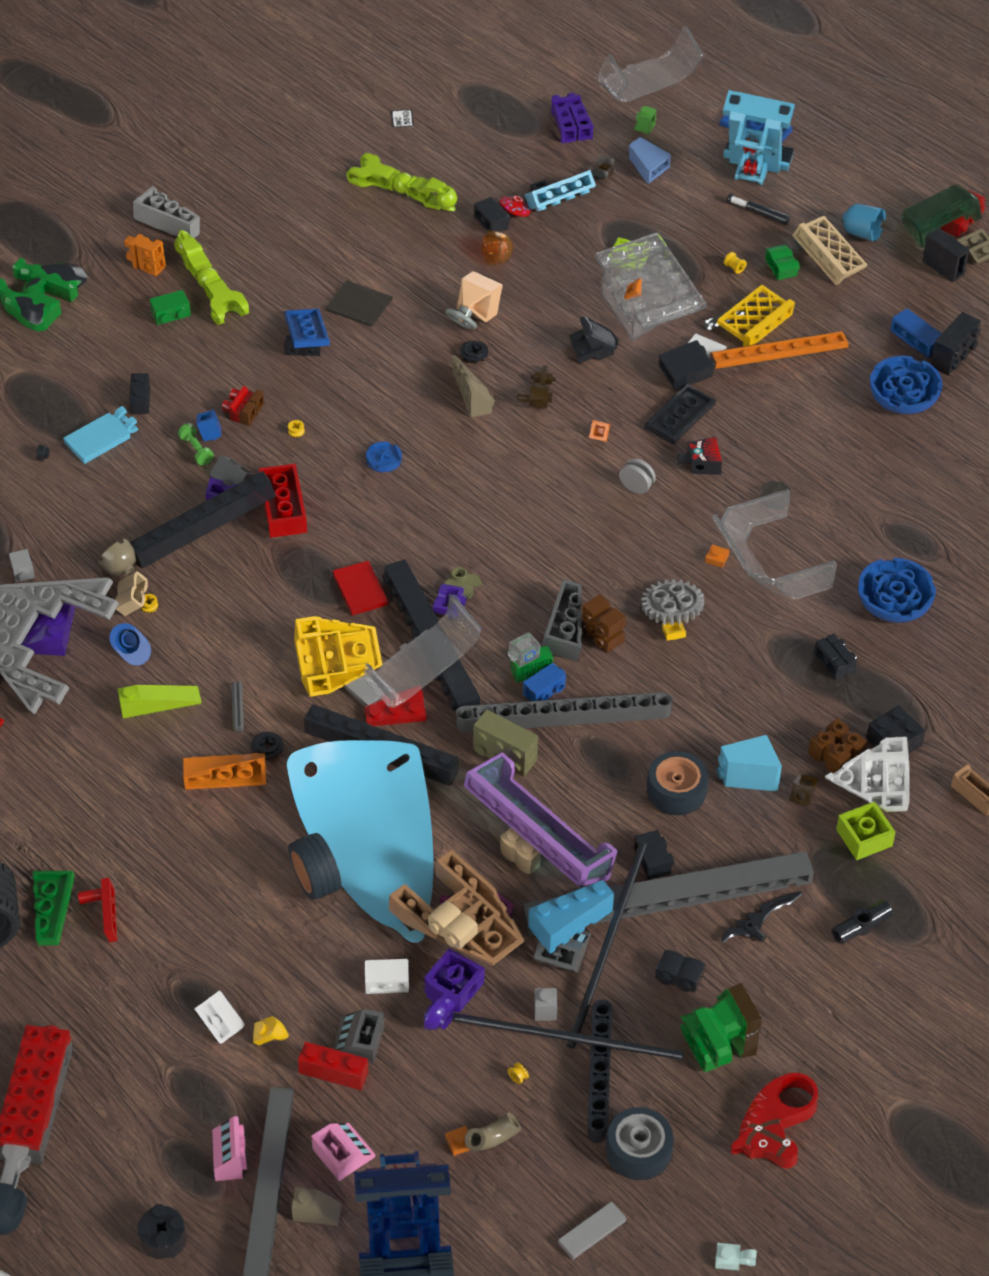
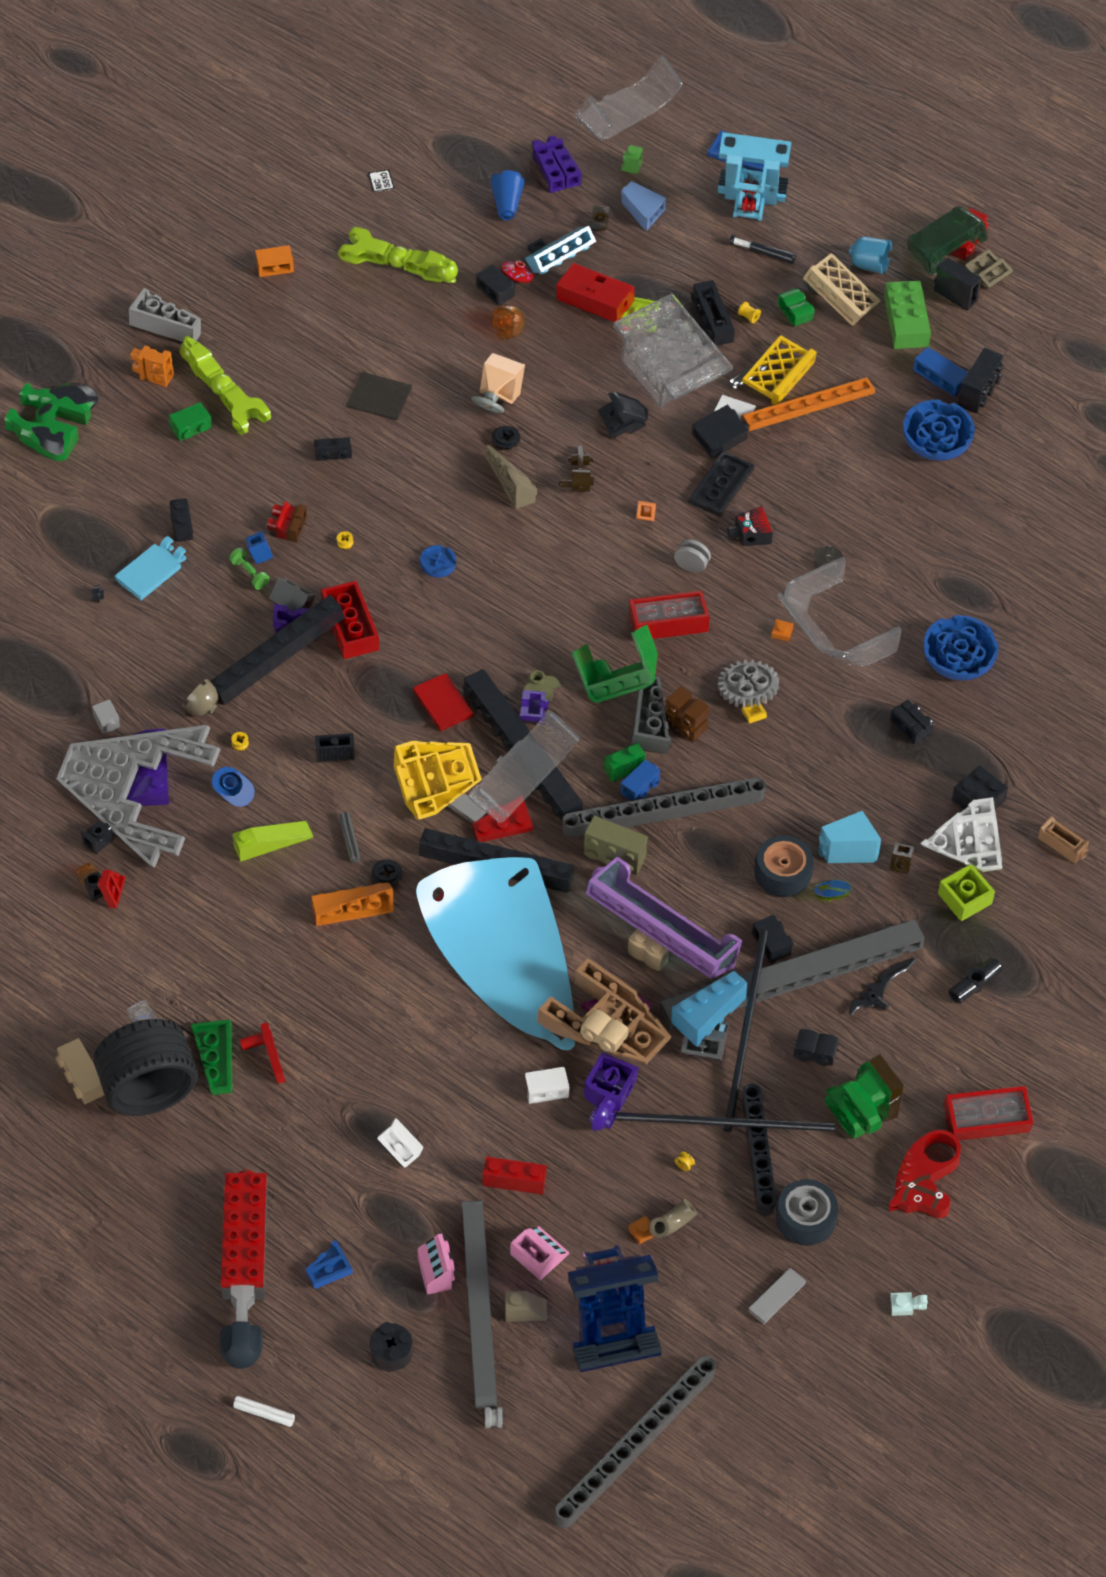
camera: 10 degrees left, 5 degrees up
(116, 1138) = (329, 1267): none -> blue wing
(131, 593) = (222, 732): tan brick -> none
(240, 618) = (334, 747): none -> black brick
(268, 1030) = (447, 1149): yellow plate -> none
(284, 176) = (274, 261): none -> orange brick
(306, 328) = (334, 431): blue tile -> none
(314, 866) = (460, 988): black wheel -> none
(360, 1033) = (533, 1142): dark grey slope -> none
(518, 136) = (507, 192): none -> blue cone
(522, 582) = (605, 684): none -> green windscreen
(524, 649) = (618, 750): clear brick -> none
(545, 1004) = (698, 1093): light grey brick -> none
(585, 229) = (595, 292): none -> red brick
(603, 529) = (670, 614): none -> brick
(634, 289) = (659, 359): orange slope -> none
(691, 243) = (702, 295): none -> black brick
(724, 813) = (832, 890): none -> piece
(836, 745) = (927, 812): reddish brown brick -> none
(854, 1062) = (988, 1113): none -> brick
(891, 278) = (907, 314): none -> bright green brick

